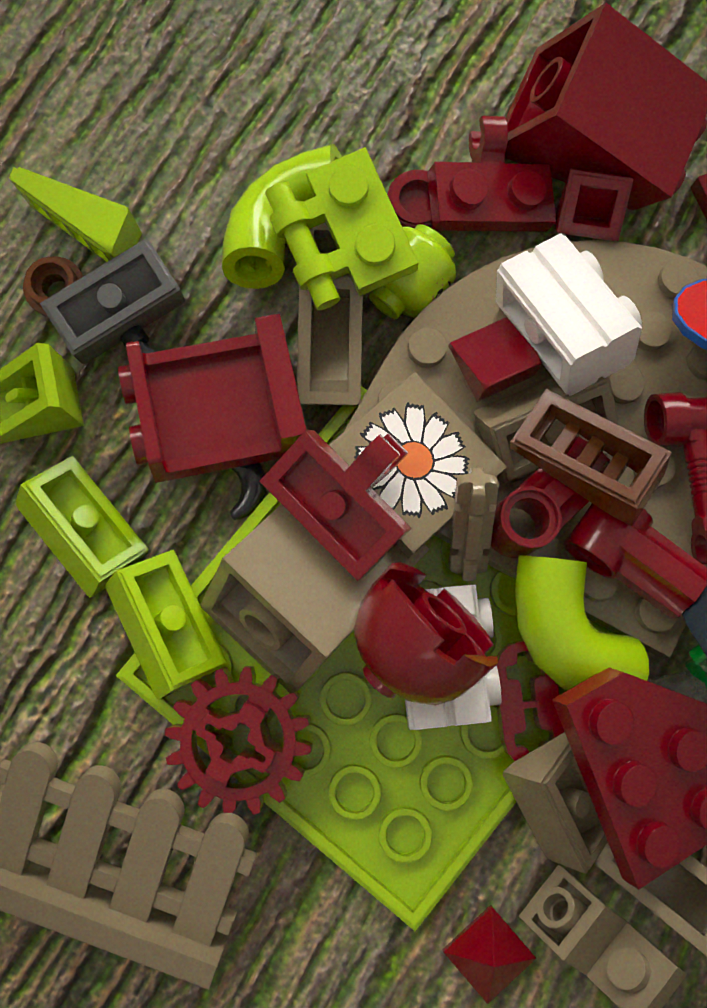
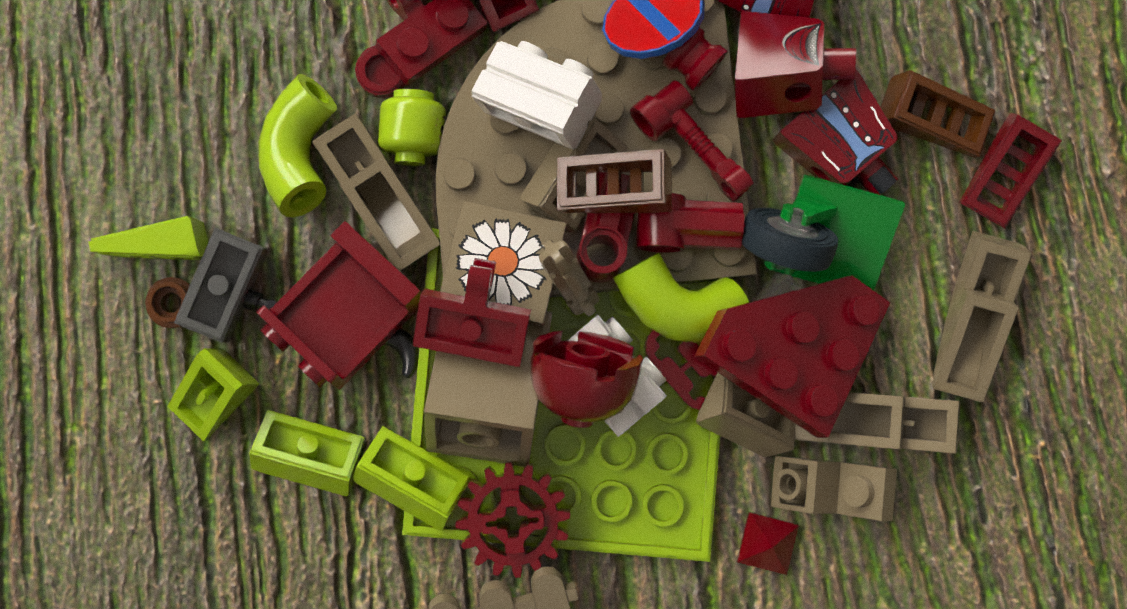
camera: 35 degrees left, 5 degrees up
(360, 222) = (356, 121): lime plate -> none
(495, 358) = (509, 153): dark red slope -> none

